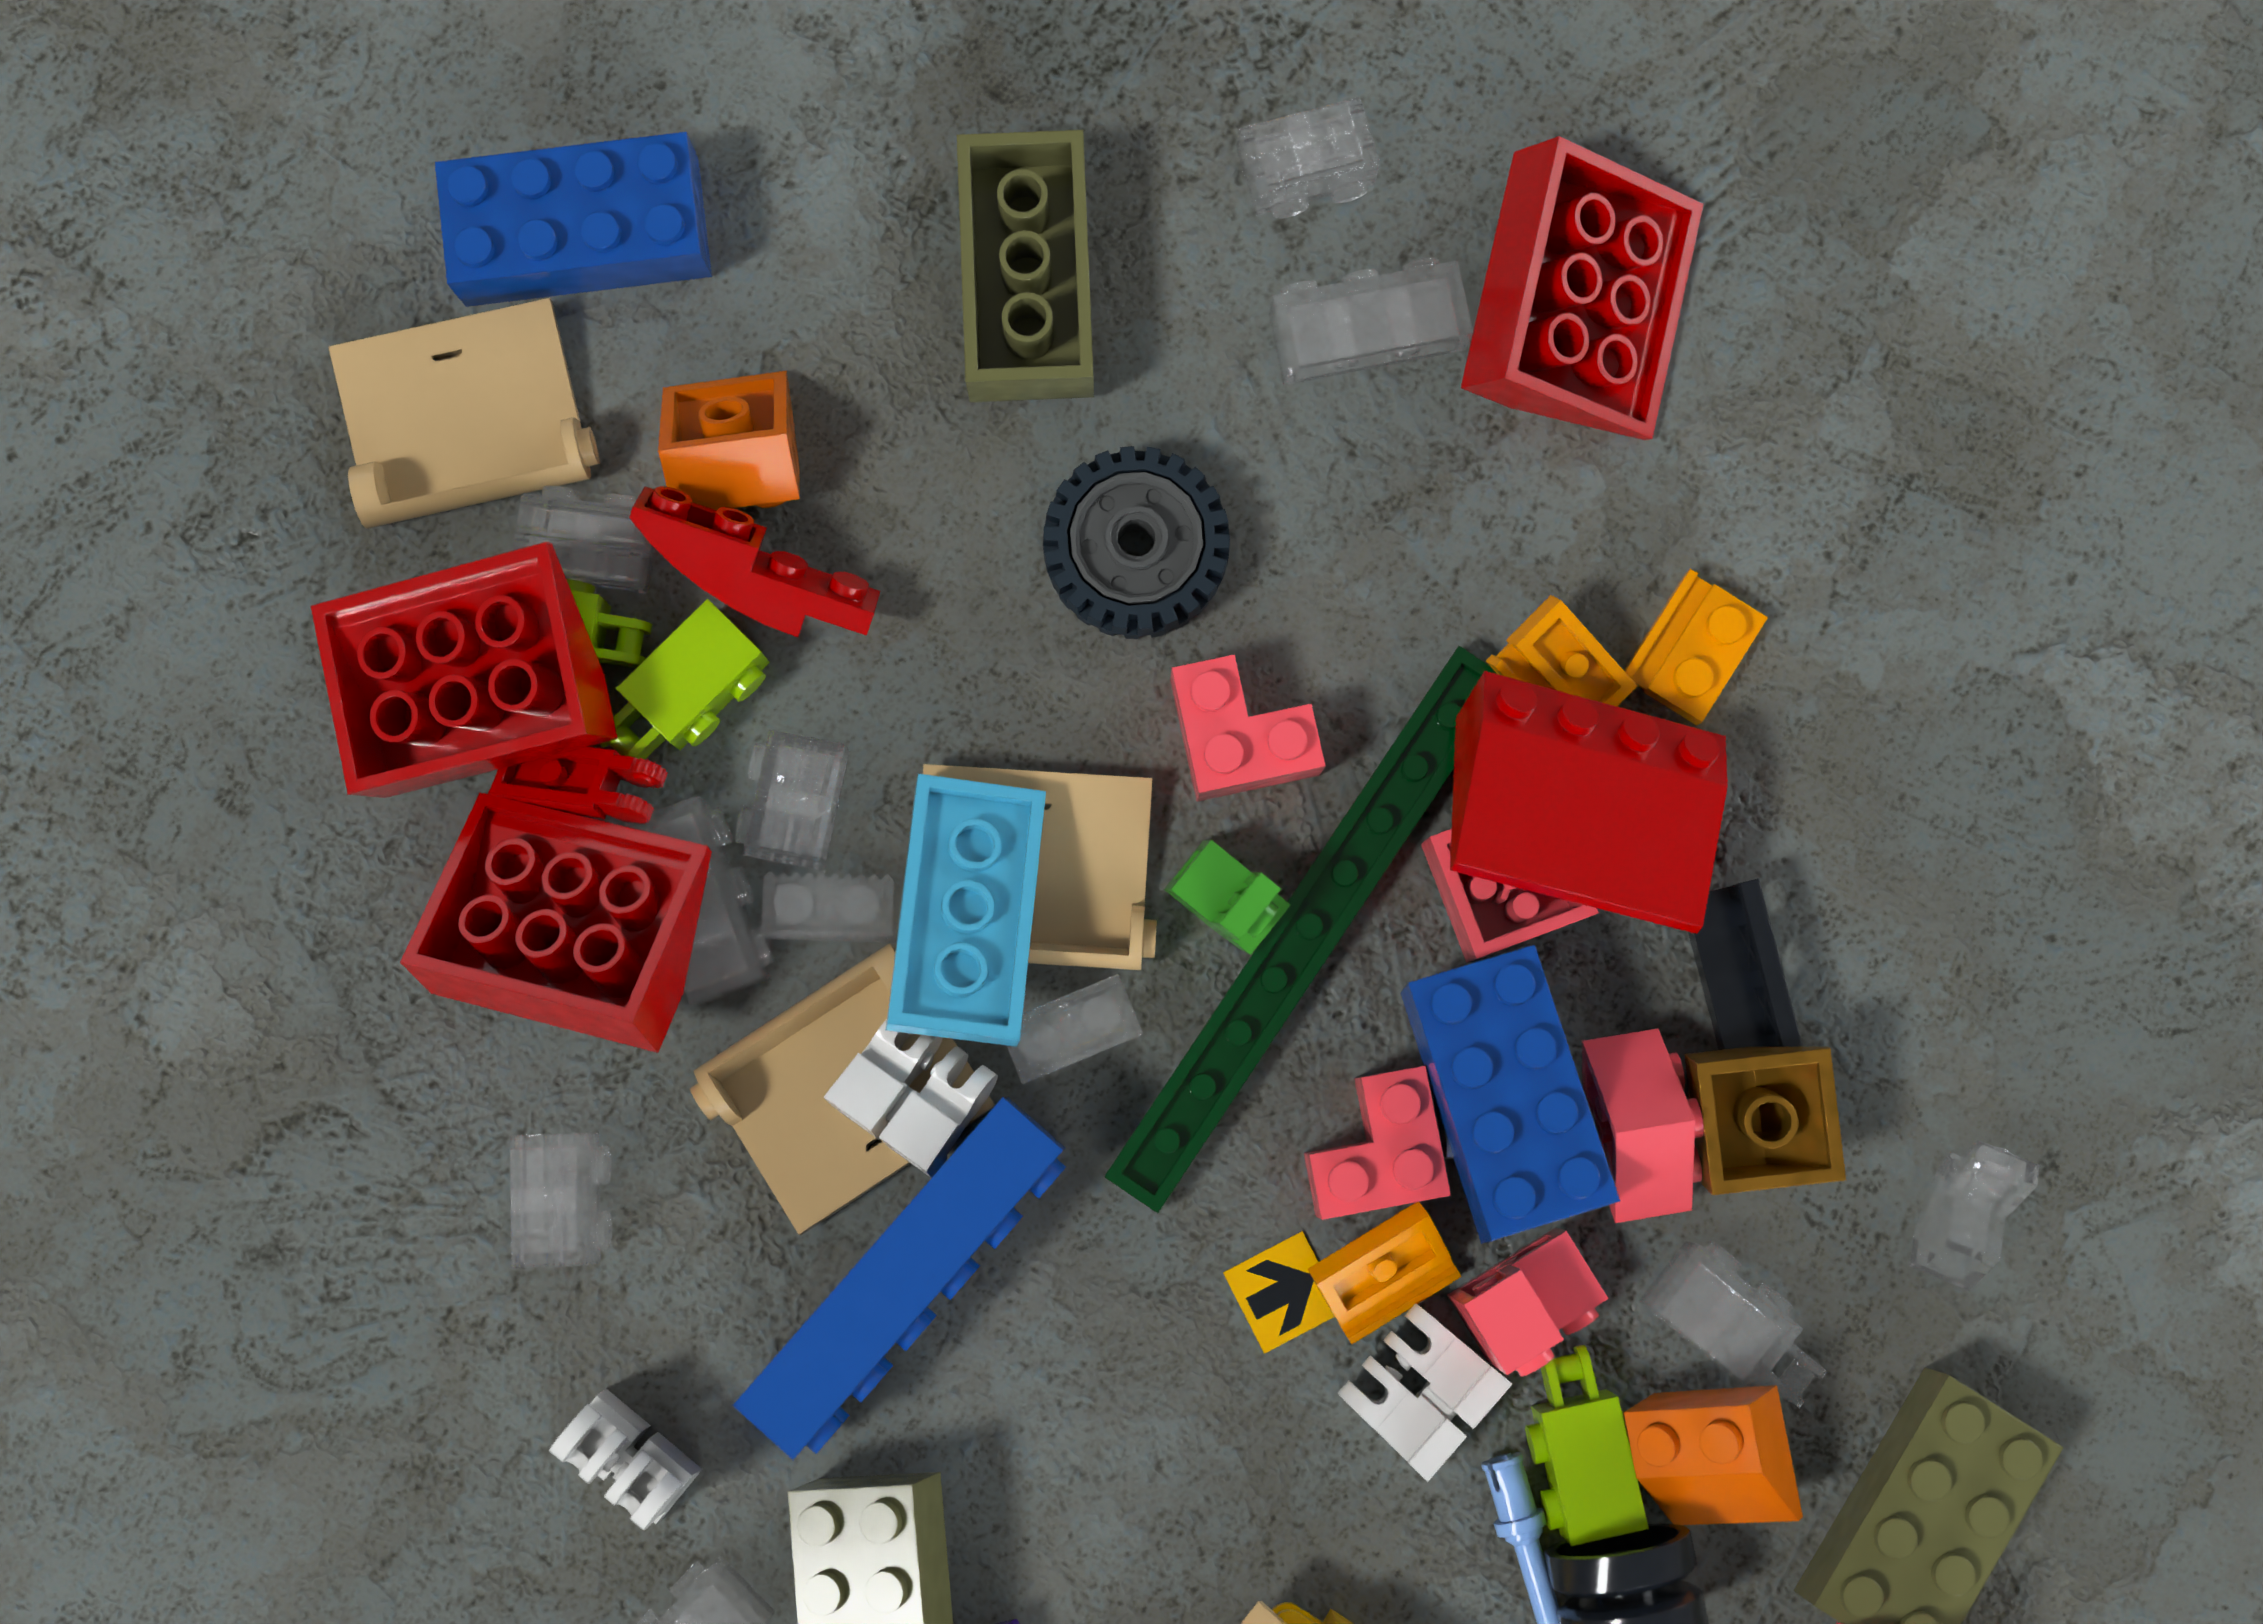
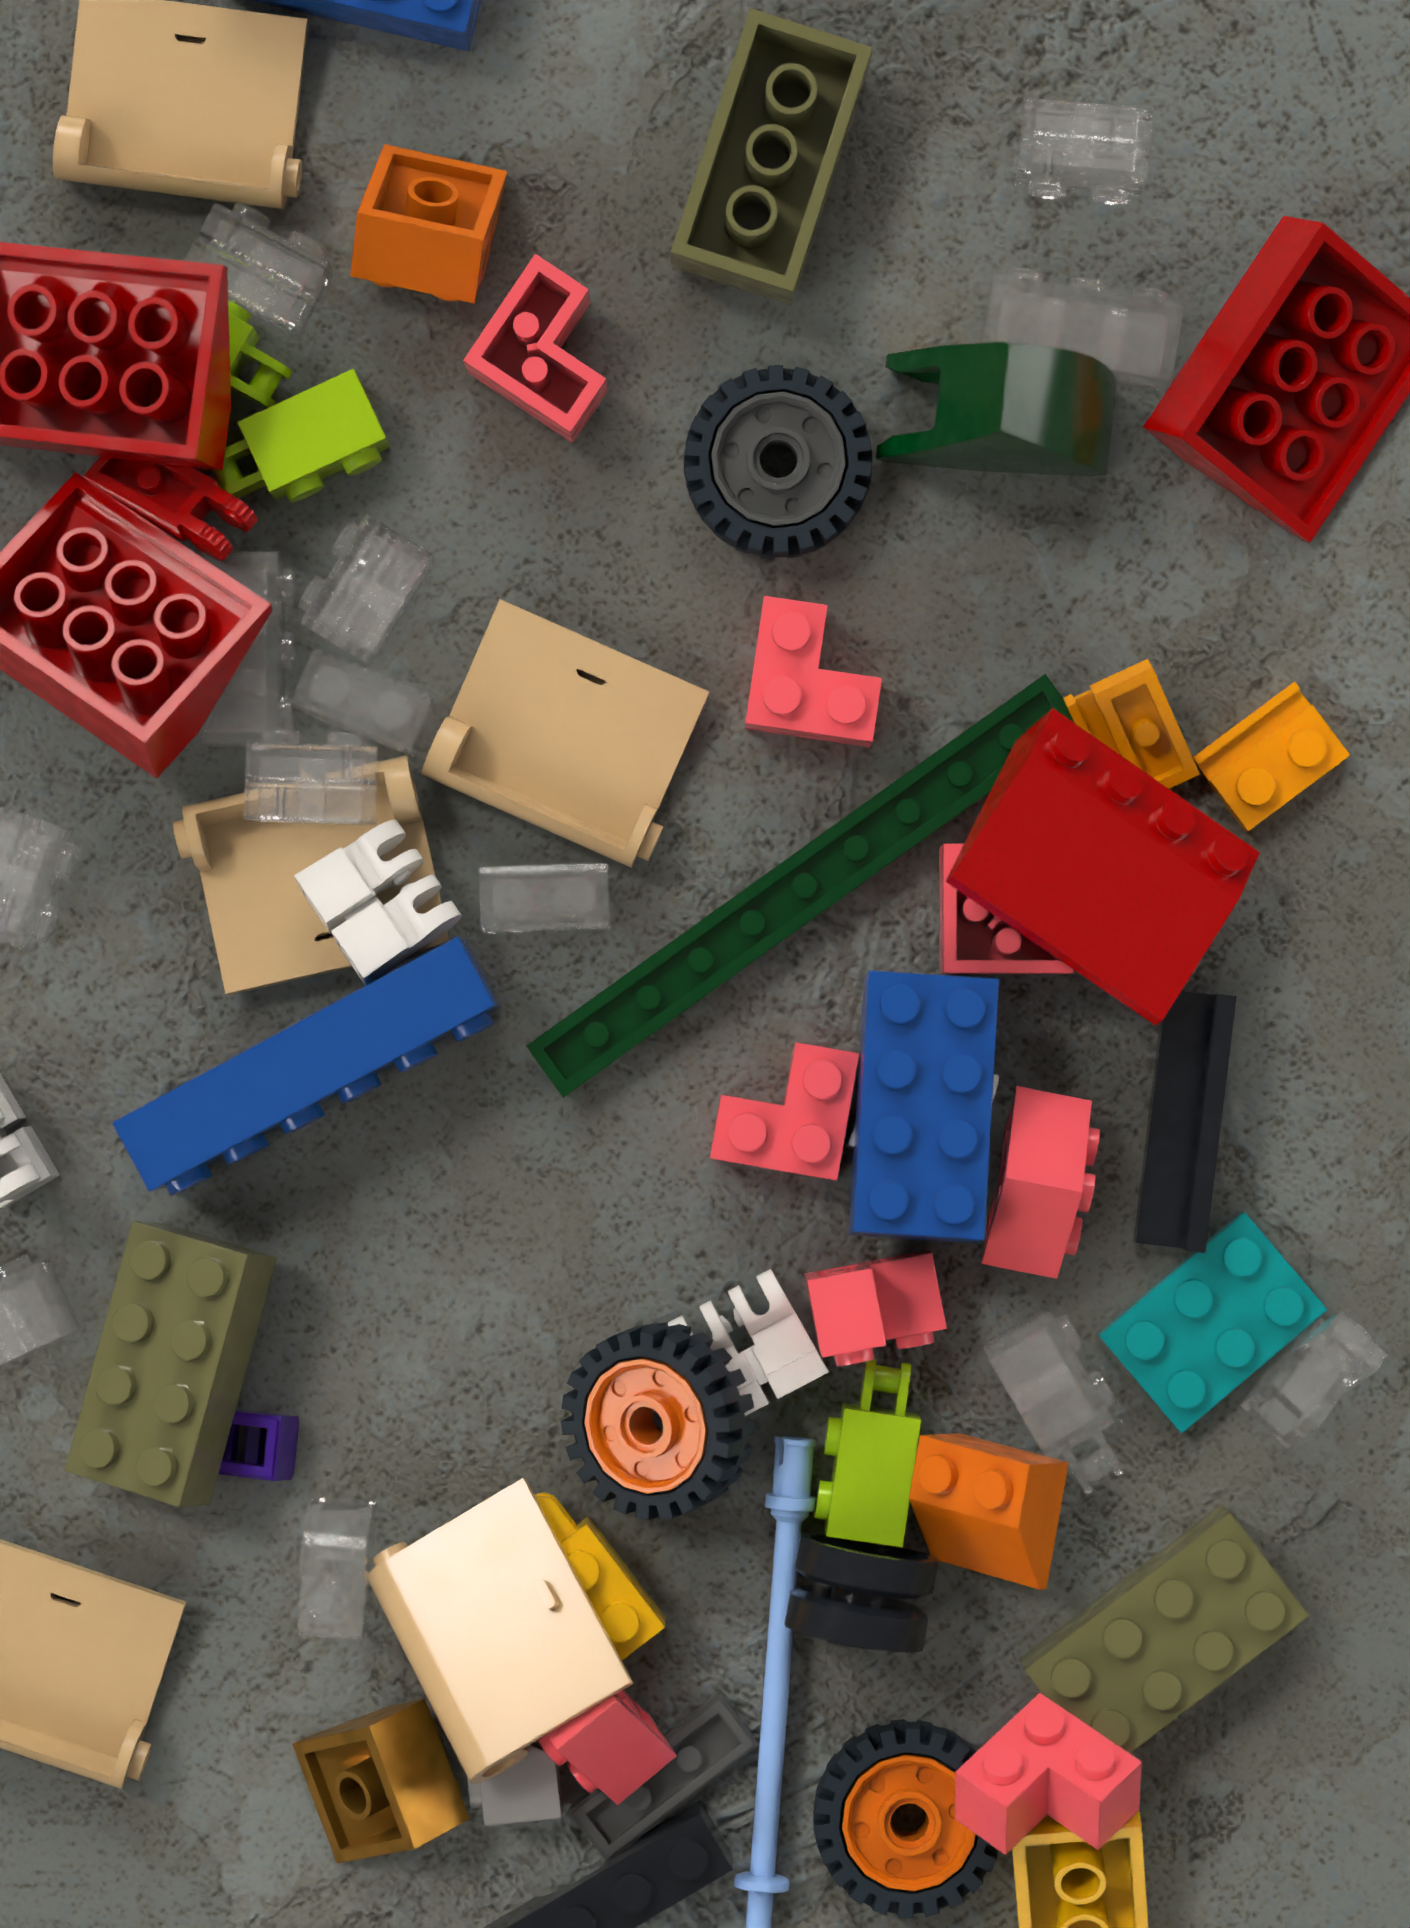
camera: 25 degrees right, 5 degrees up
(724, 558) = (383, 335): red slope -> none
(807, 1000) = (311, 780): none -> clear brick
(863, 528) = (523, 353): none -> coral brick
(966, 911) = (488, 752): medium azure plate -> none
(1228, 896) = (737, 829): bright green brick -> none
(1279, 1292) = (653, 1214): yellow sticker -> none
(1331, 413) = (1009, 410): none -> dark green piece
(1384, 1272) = (751, 1229): light orange plate -> none
(1397, 1460) = (699, 1410): none -> wheel
(1766, 1118) = (1154, 1217): pearl gold slope -> none
(1850, 1230) = (1212, 1322): none -> teal plate

